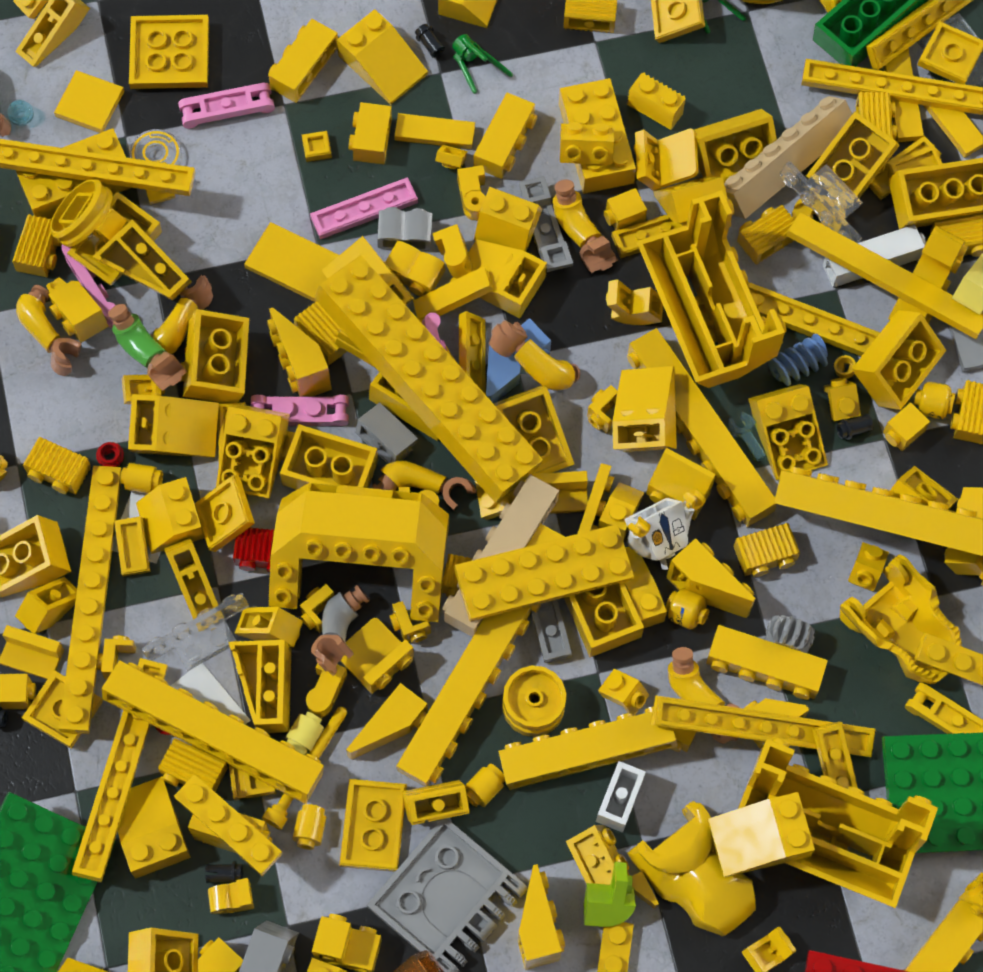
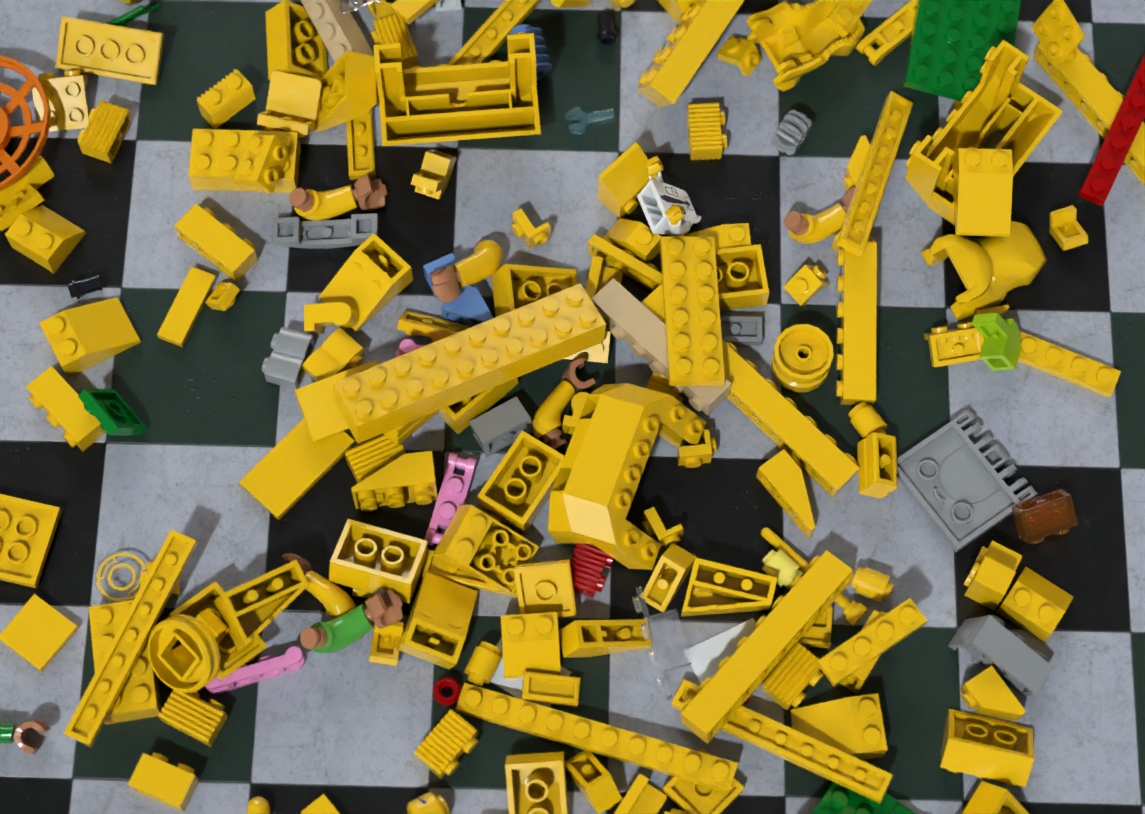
camera: 75 degrees left, 0 degrees up
(17, 107) = (21, 700): clear light blue plate -> none
(32, 316) = (271, 736): piece -> none
(76, 308) = (279, 689): yellow hinge -> none
(112, 647) = (661, 730): yellow bracket -> none
(225, 872) = (898, 670): black pin -> none
(226, 104) = (90, 496): bright pink plate -> none
(231, 897) = (924, 668): yellow leg -> none
(305, 95) = (112, 412): none -> green plate
(316, 146) = (165, 421): yellow tile -> none
(323, 696) = (742, 538): yellow leg -> none
(336, 618) = (675, 510): piece -> none
(363, 208) = (249, 392): bright pink tile -> none
(371, 133) = (172, 363): yellow brick -> none
(373, 825) = (880, 529): yellow tile -> none
(376, 655) = (721, 487): yellow bracket -> none
(454, 294) = (376, 324): yellow tile -> none
(468, 50) = (107, 253): green plant -> none
(469, 185) = (267, 288): yellow leg -> none
(507, 220) = (313, 261): yellow slope -> none
(537, 935) = (1008, 405): yellow slope -> none
(620, 796) = (907, 308): white brick -> none
(625, 210) = (332, 157): yellow brick -> none
(645, 410) = (547, 188): yellow slope -> none
(687, 608) = (744, 208): yellow head -> none
(703, 574) = (719, 186): yellow slope -> none
(707, 434) = (569, 152): yellow brick -> none
(766, 662) = (809, 160): yellow brick -> none
(788, 429) = (593, 81): yellow slope -> none
(835, 754) = (910, 126): yellow tile -> none
(839, 366) = (550, 15): yellow hinge -> none
(843, 399) = (577, 29): yellow bracket -> none

